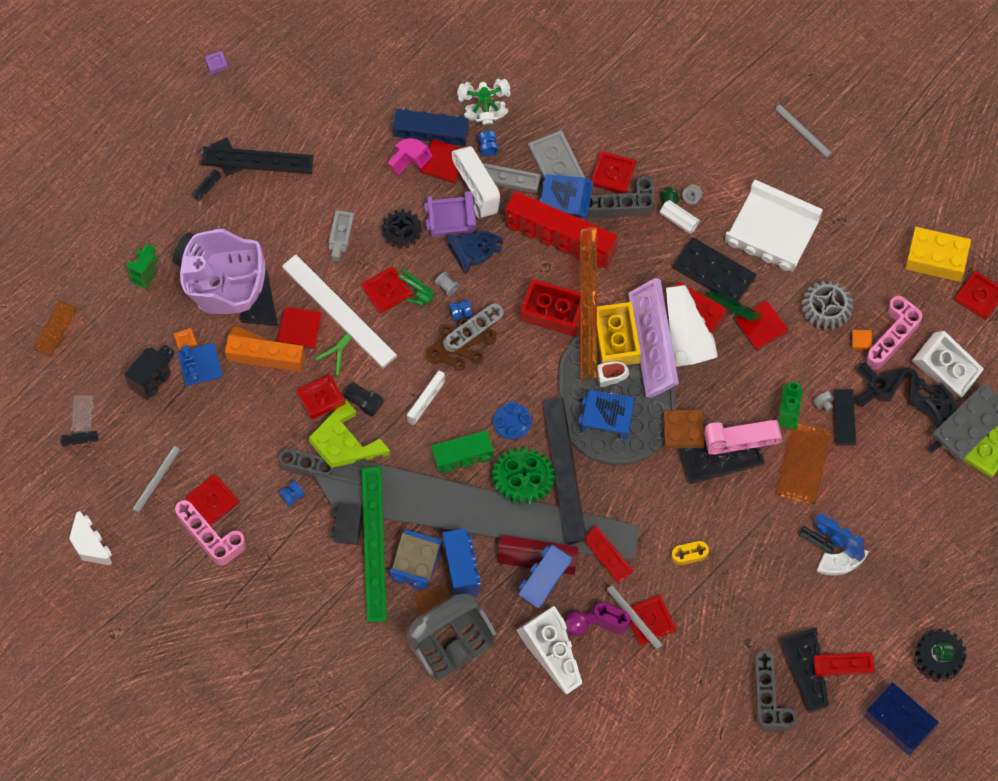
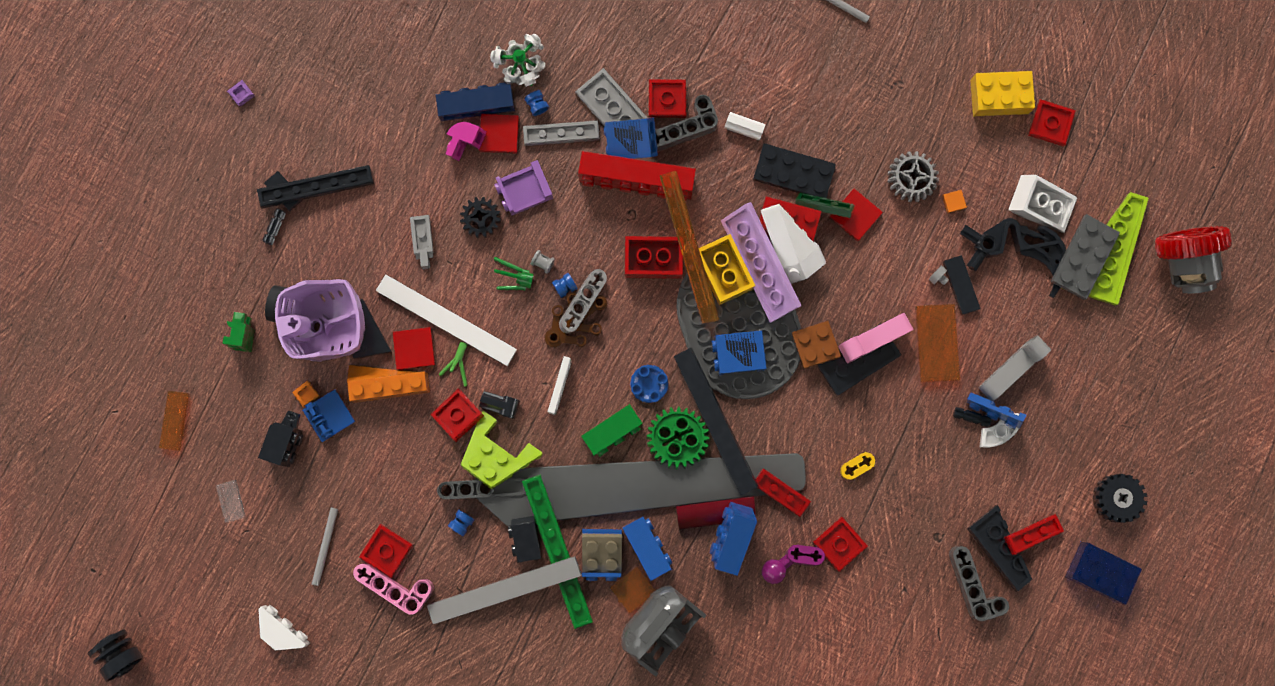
camera: 20 degrees left, 15 degrees up
(79, 438) = (236, 527): black axle -> none
(312, 564) = (504, 590): none -> light grey tile
(386, 290) = (485, 285): red tile -> none
(473, 248) = (554, 218): dark blue piece -> none
(478, 180) = (539, 147): white beam -> none
(550, 645) = (757, 601): white wedge -> none
(611, 373) = (731, 309): rock -> none
(634, 617) = (826, 548): light grey bar -> none
(669, 194) = (727, 106): dark green piece -> none
(692, 194) = (750, 99): light grey tile -> none
(774, 226) = (837, 109): white panel -> none
(790, 406) = (910, 292): green hips -> none
(873, 505) = (1014, 367): none -> light grey beam
(891, 336) = (983, 190): bright pink beam -> none
(944, 651) = (1126, 497): dark green piece -> none

